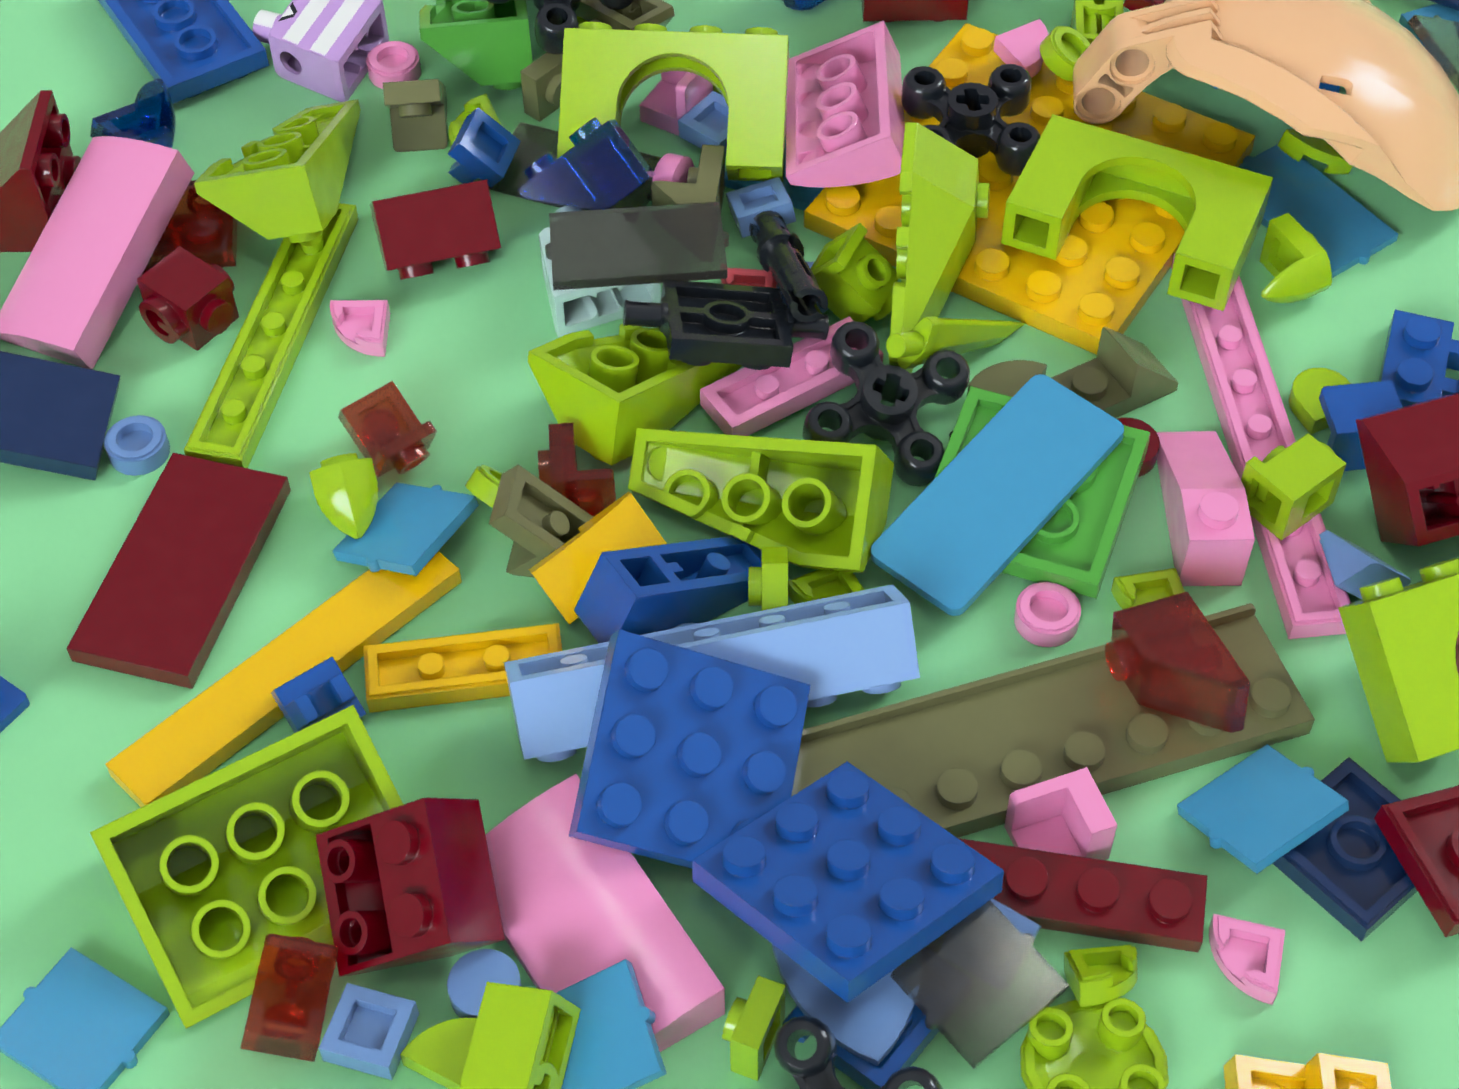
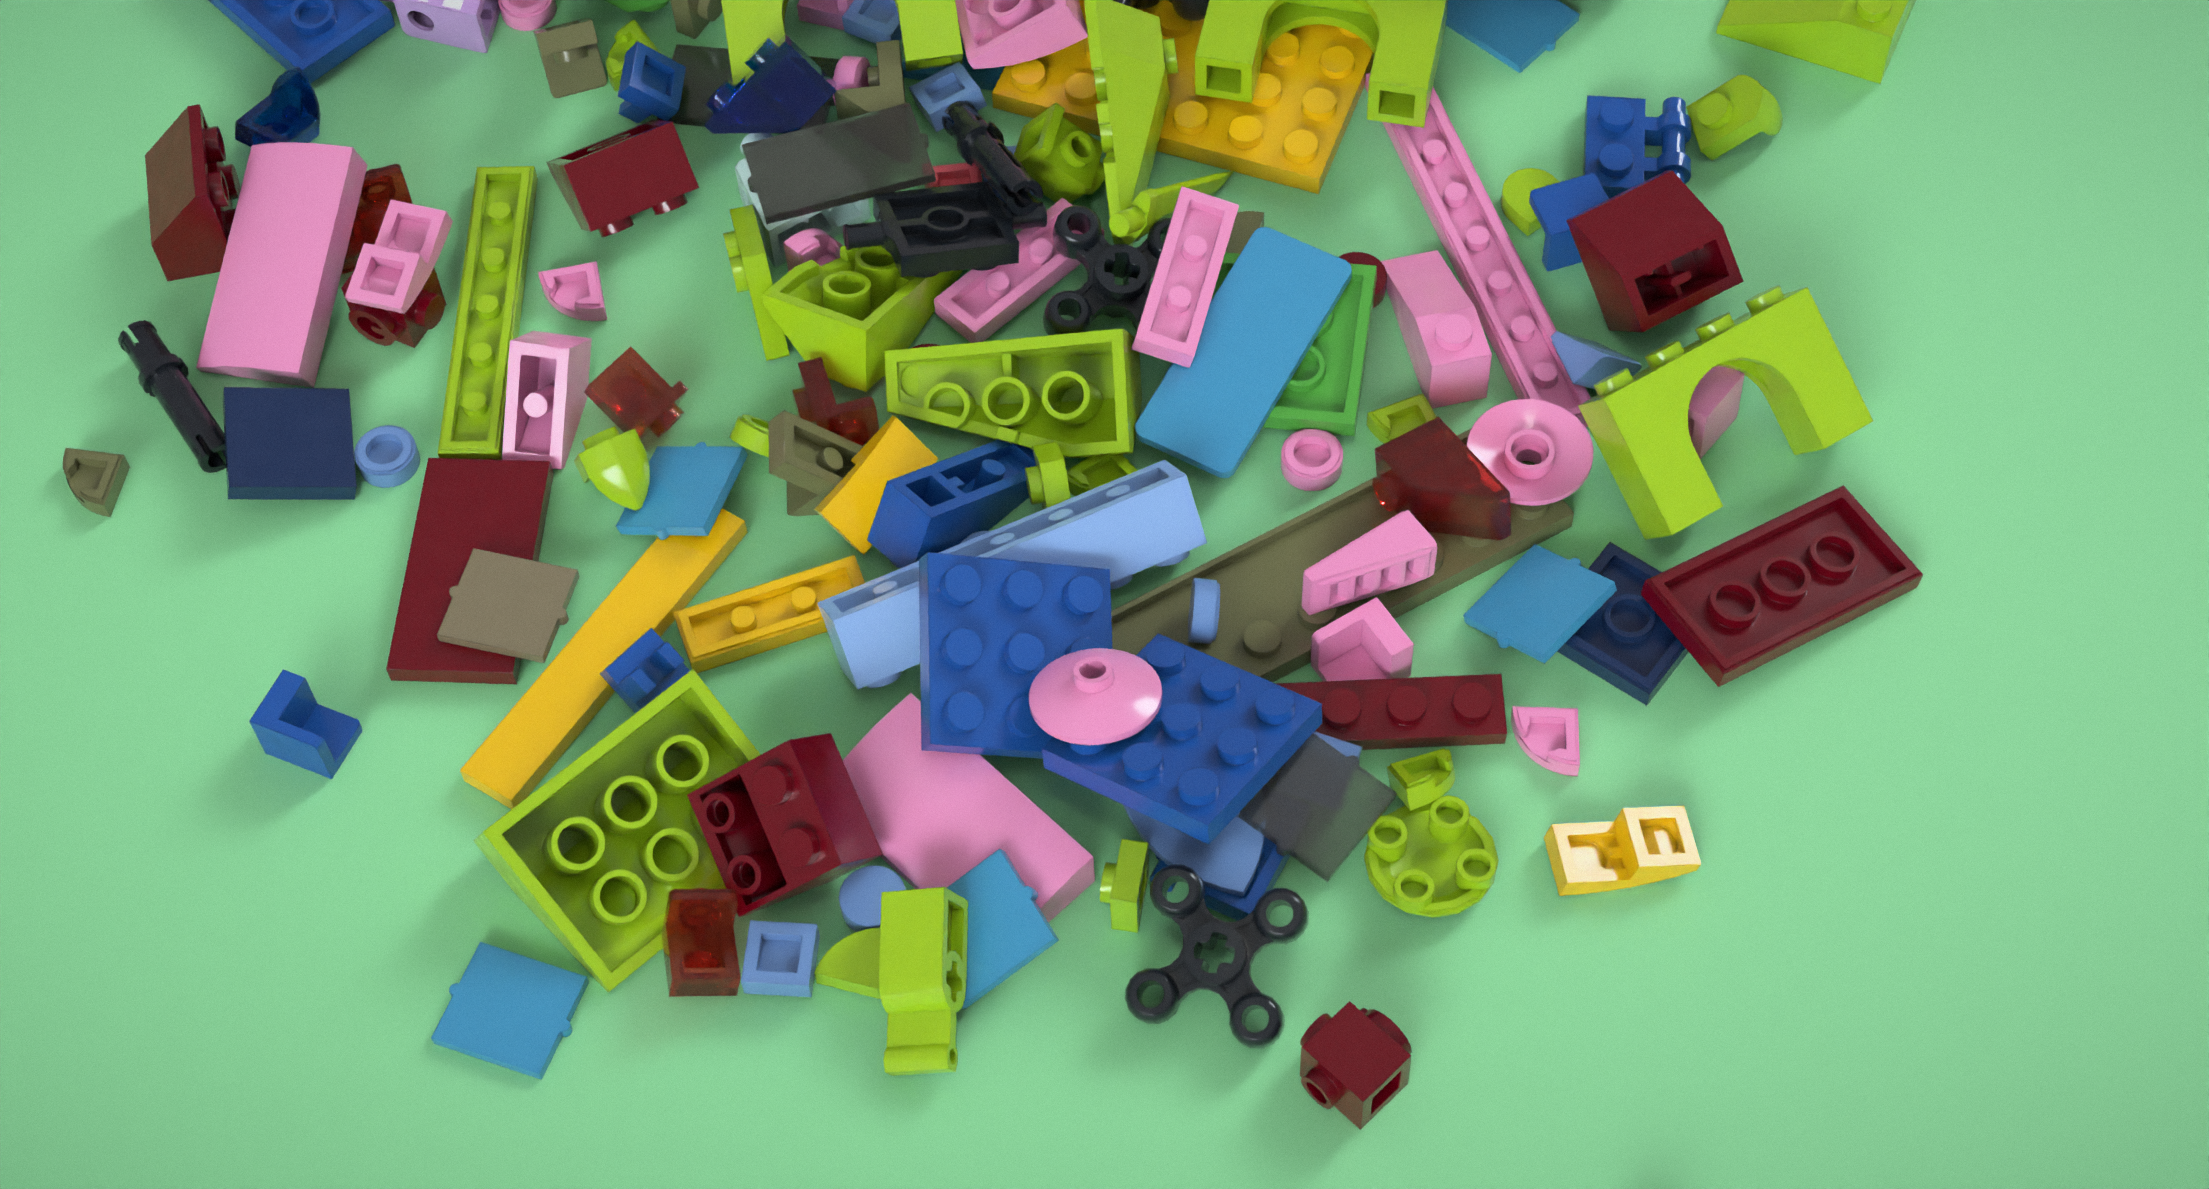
camera: 10 degrees left, 5 degrees up
(199, 262) = (401, 259): none -> bright pink slope
(203, 608) = (508, 605): none -> dark tan piece
(290, 179) = (462, 147): lime wedge -> none
(299, 413) = (545, 396): none -> bright pink slope
(527, 328) = (753, 274): none -> lime wing
(593, 317) = (809, 245): none -> bright pink tile
(762, 815) = (1095, 696): none -> bright pink dish
(900, 747) = (1203, 611): none -> medium blue tile
(951, 408) = (1185, 277): none -> bright pink plate
(1091, 731) = (1375, 563): none -> bright pink slope
(1120, 376) = (1335, 213): olive slope -> none
(1287, 628) = (1538, 434): none -> bright pink dish
(1292, 484) = (1517, 293): lime brick -> none
(1295, 261) = (1484, 61): lime plate -> none

